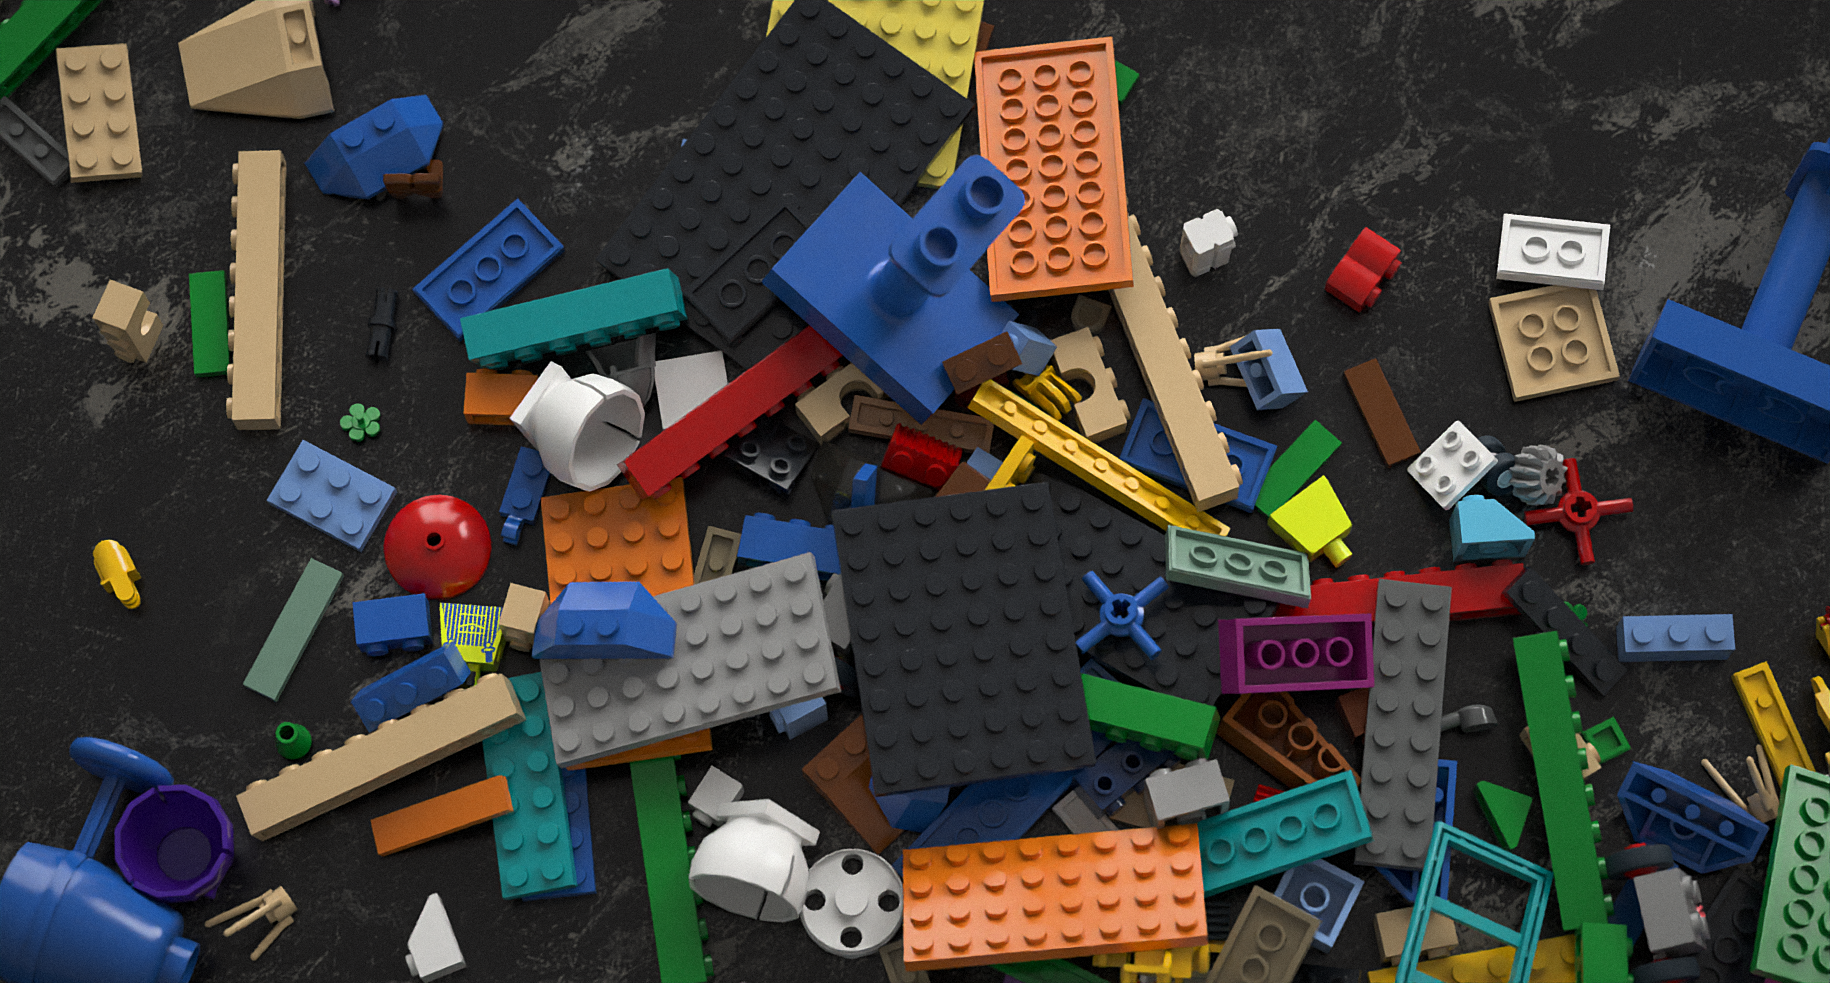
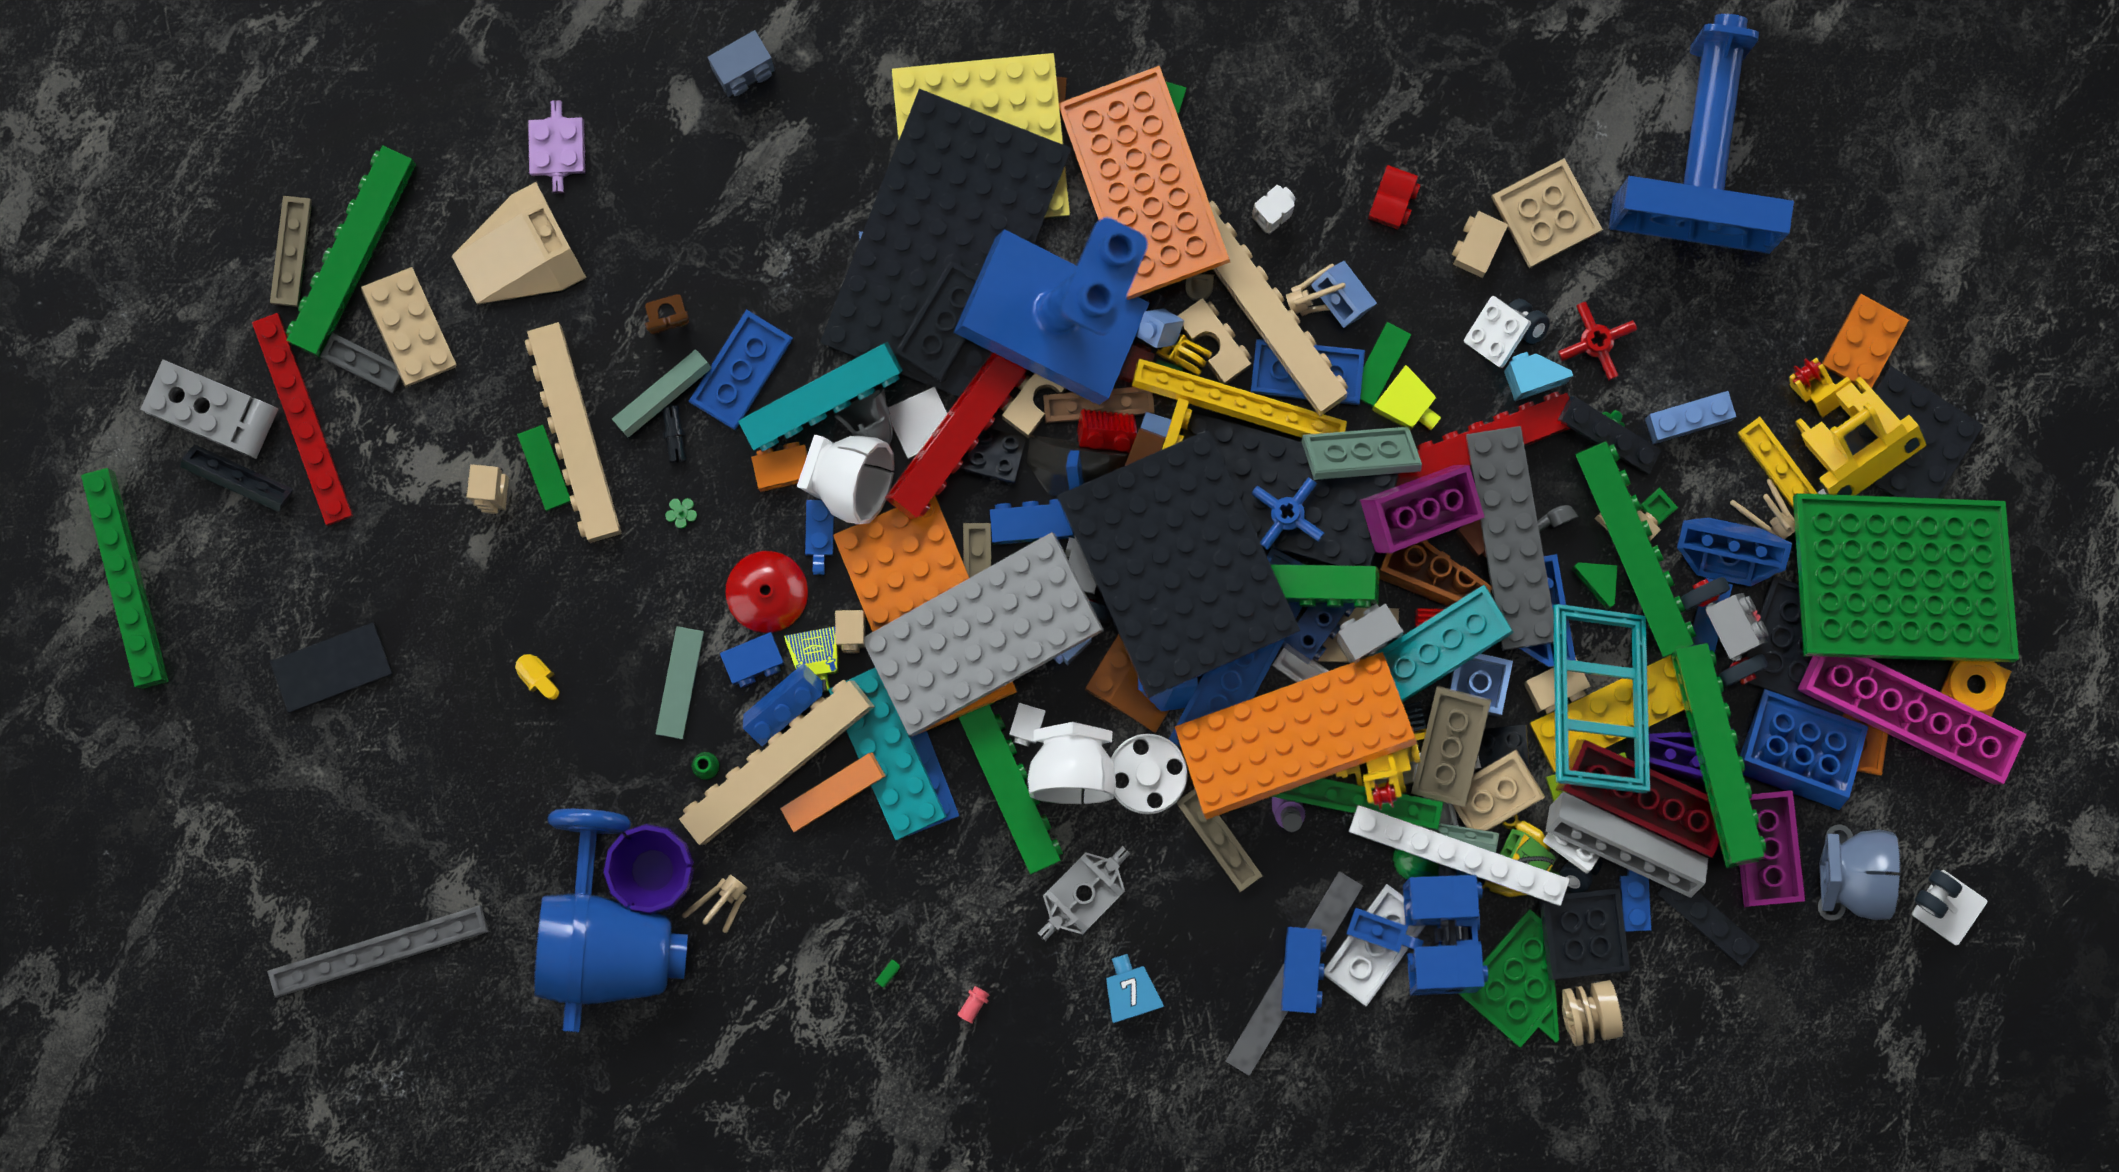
camera: 20 degrees left, 10 degrees up
(332, 496) = (676, 574): medium blue plate -> none
(381, 271) = (661, 393): none -> sand green tile
(386, 140) = (630, 299): blue wedge -> none
(433, 944) = (854, 886): white slope -> none
(605, 623) = (914, 623): blue wedge -> none
(982, 363) = (1134, 350): reddish brown plate -> none
(1381, 413) = (1434, 303): reddish brown tile -> none
(1458, 354) = (1480, 243): none -> tan brick
(1538, 475) = (1561, 322): light grey gear -> none
(1553, 251) = (1530, 146): white tile -> none

